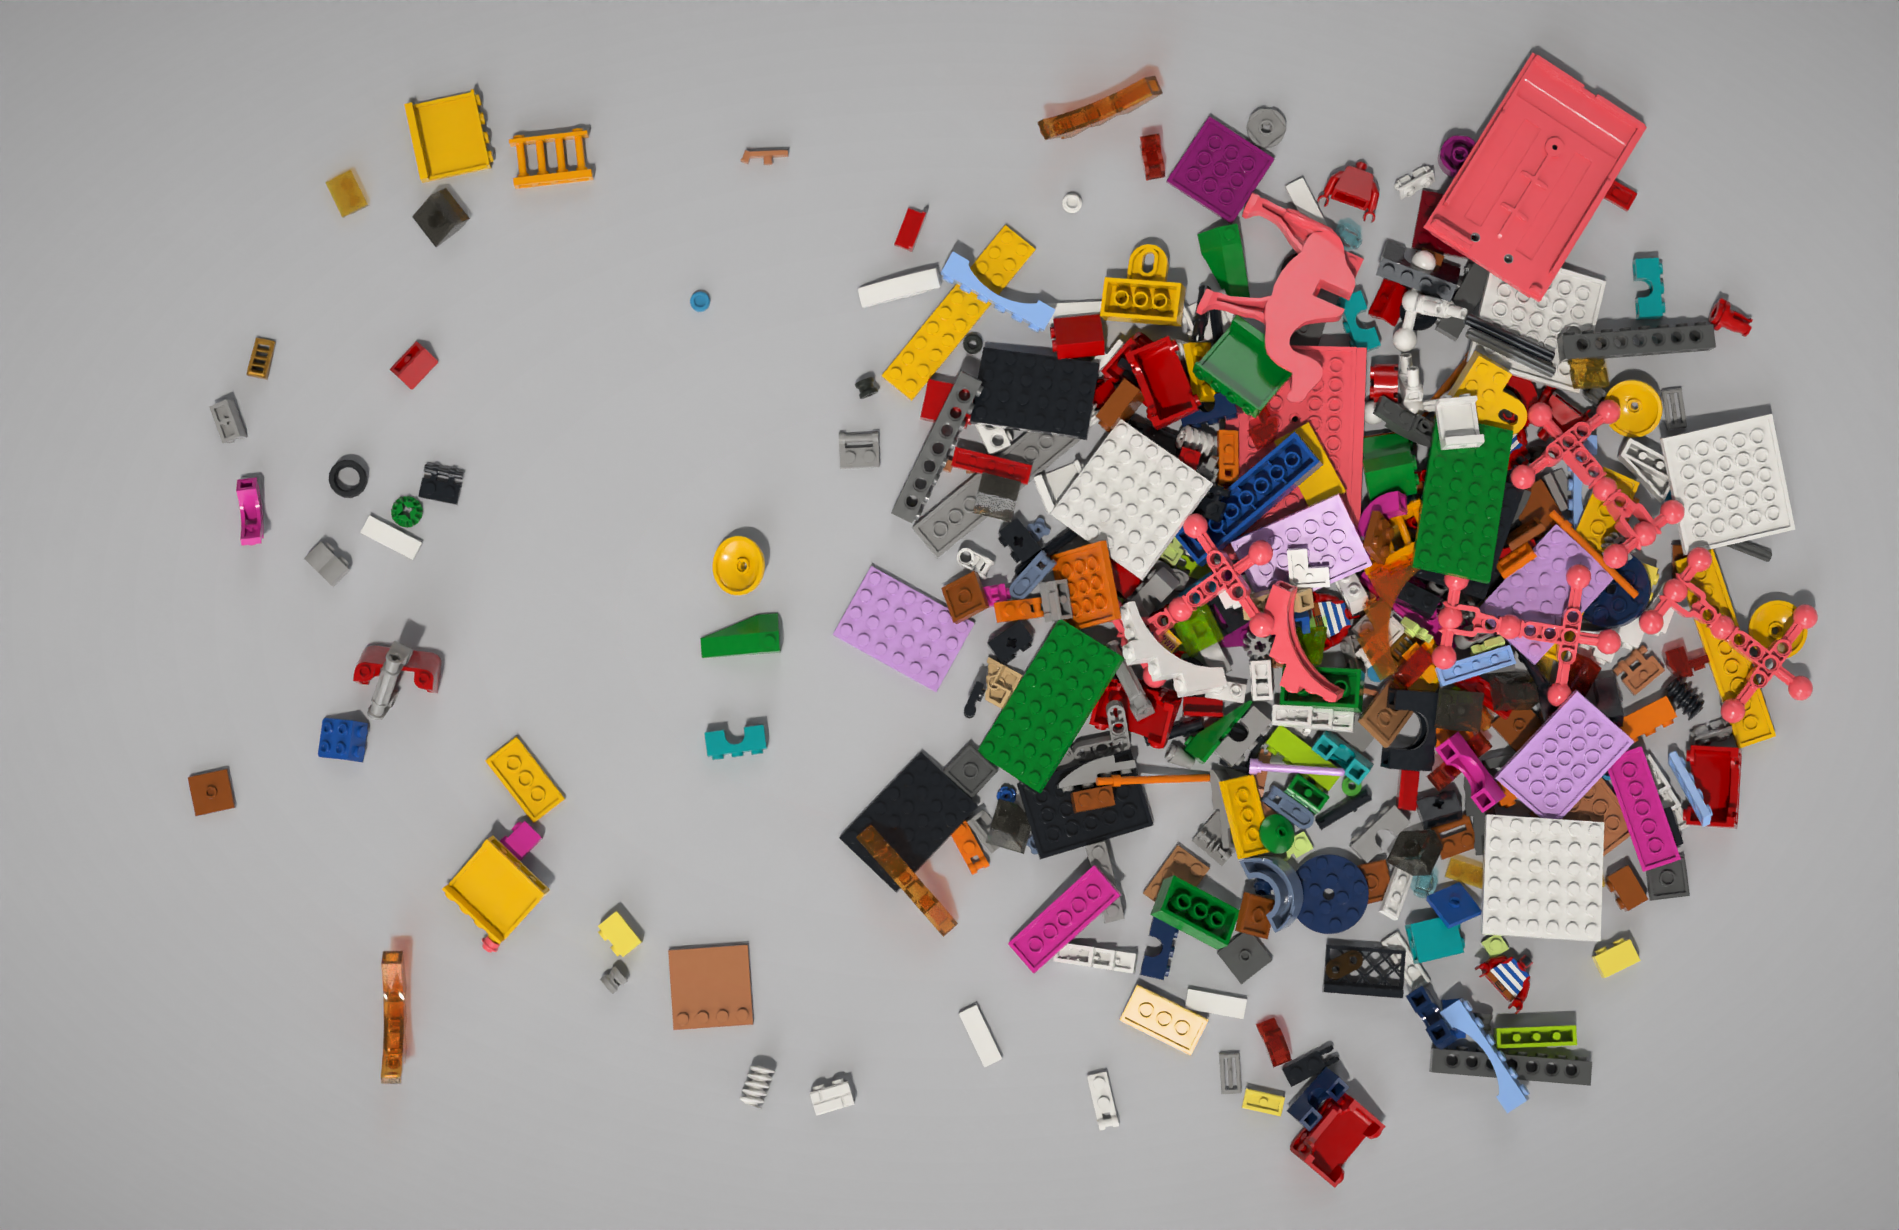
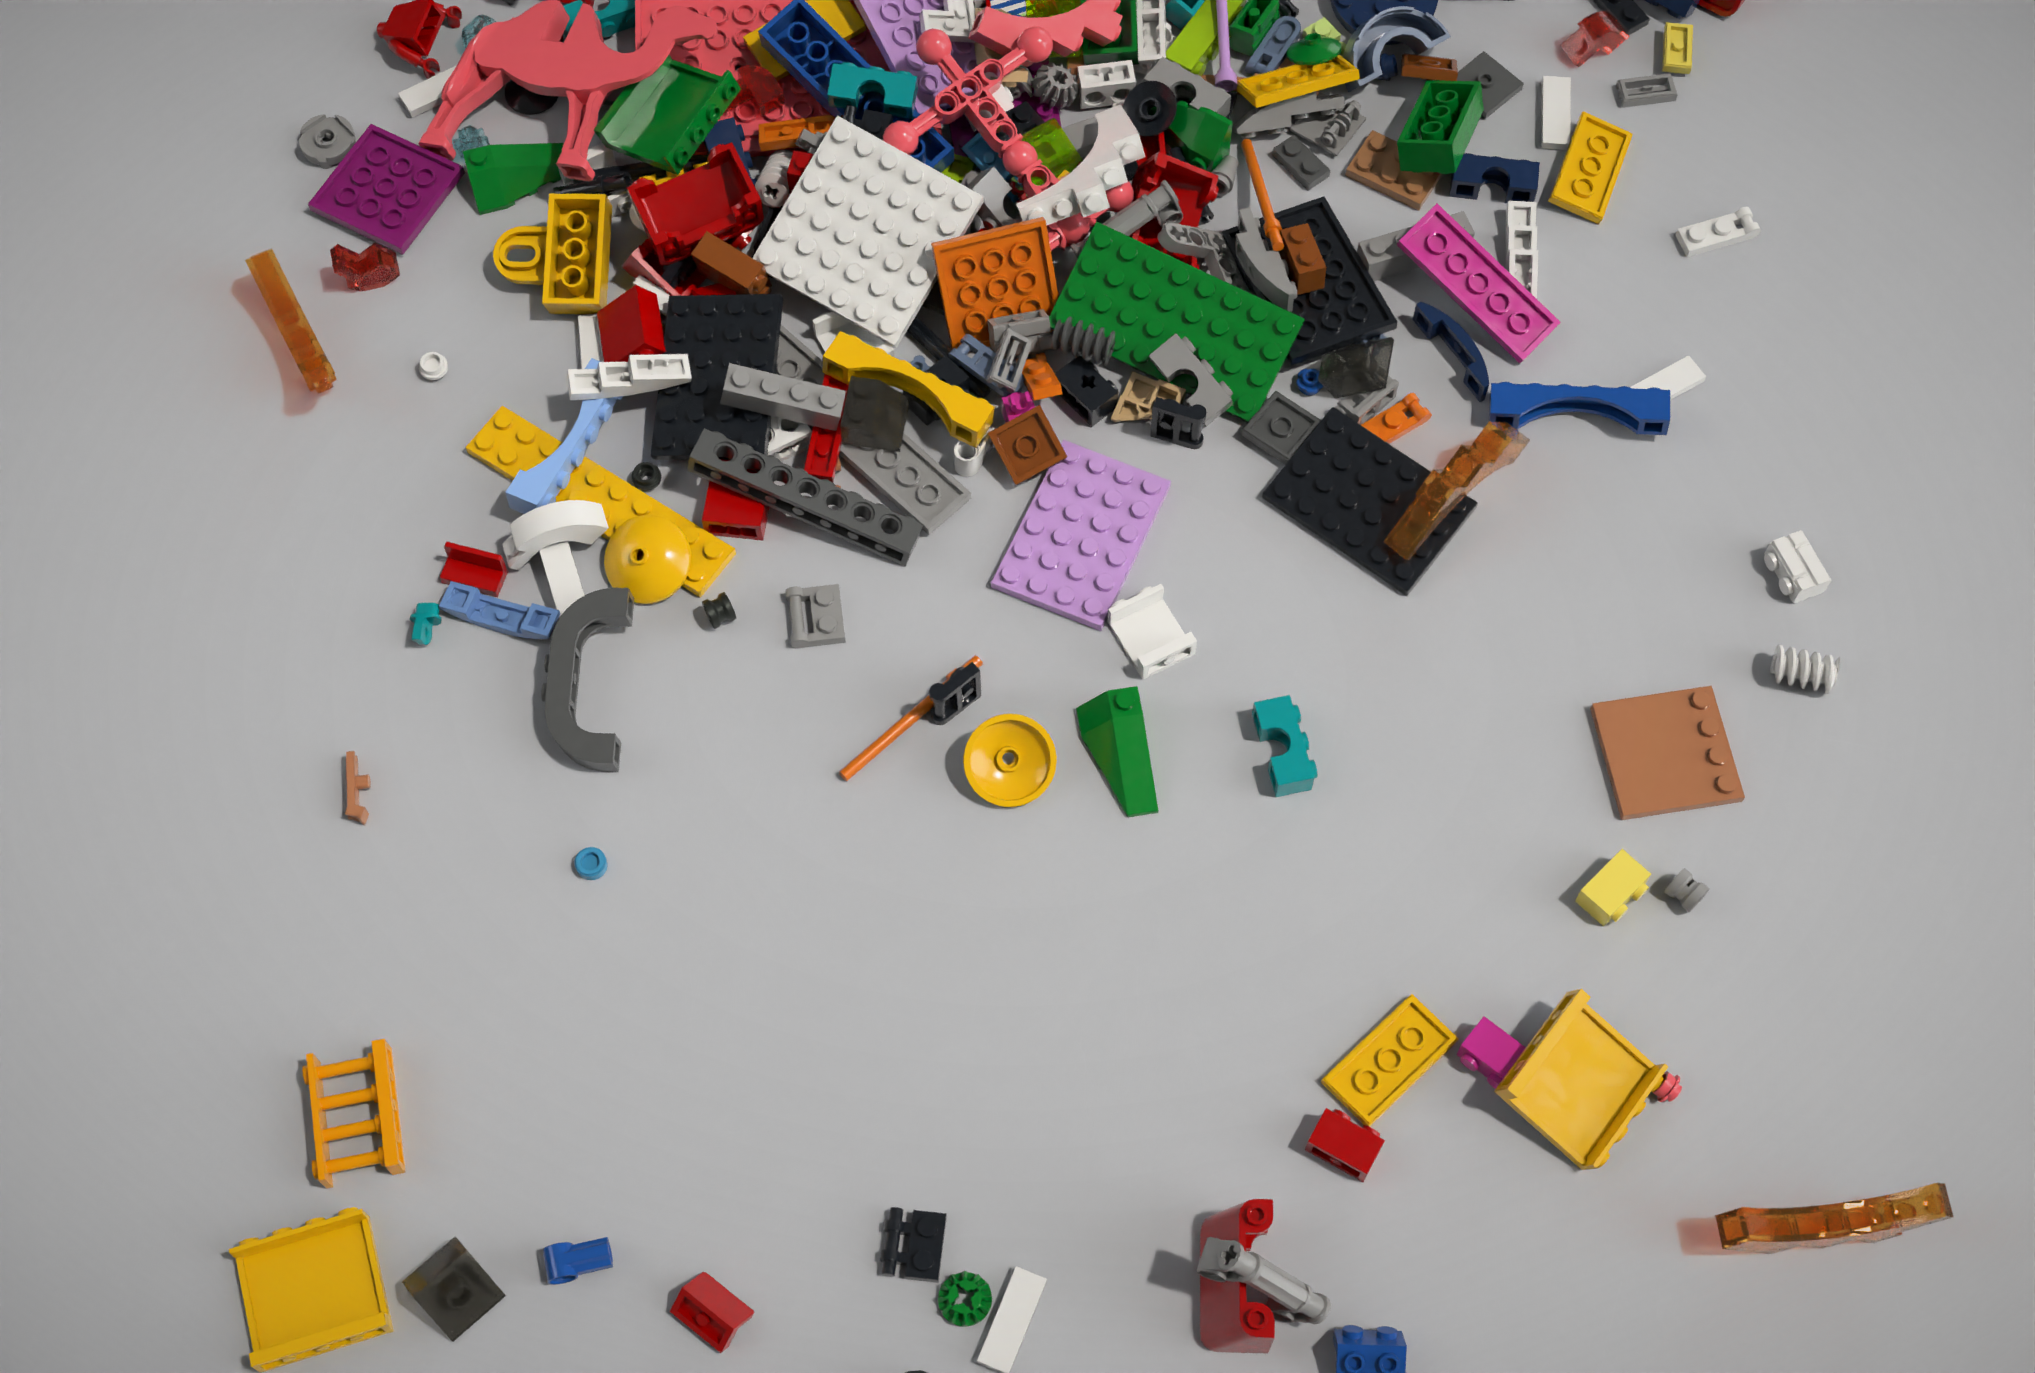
camera: 90 degrees left, 20 degrees down
(450, 283) = (568, 1261): none -> blue piece
(474, 744) = (1345, 1144): none -> red brick
(790, 538) = (961, 688): none -> black plate
(803, 537) = (895, 731): none -> orange bar
(815, 284) = (581, 619): none -> dark grey arch
(825, 666) = (1150, 632): none -> white panel
(878, 246) = (497, 614): none -> medium blue slope
(880, 198) = (424, 619): none -> teal piece
(913, 350) = (664, 560): none -> yellow dish
(928, 283) = (551, 524): none -> white arch
(955, 1013) = (1637, 409): none -> blue arch
(1003, 435) = (782, 397): none -> light grey brick
(1017, 704) = (1177, 358): none -> light grey arch
(1029, 582) = (1001, 380): none -> light grey tile
(1032, 484) = (963, 414): none -> yellow arch
(1034, 334) = (633, 377): none -> white slope
(1037, 641) = (1083, 341): none -> dark grey piece
(1042, 886) = (1434, 323): none -> dark blue slope
(1188, 814) = (1301, 162): none -> dark grey plate
(1221, 702) = (1142, 99): none -> black dish
(1237, 526) = (851, 82): none -> teal arch
(1256, 224) = (469, 139): none -> clear light blue gear

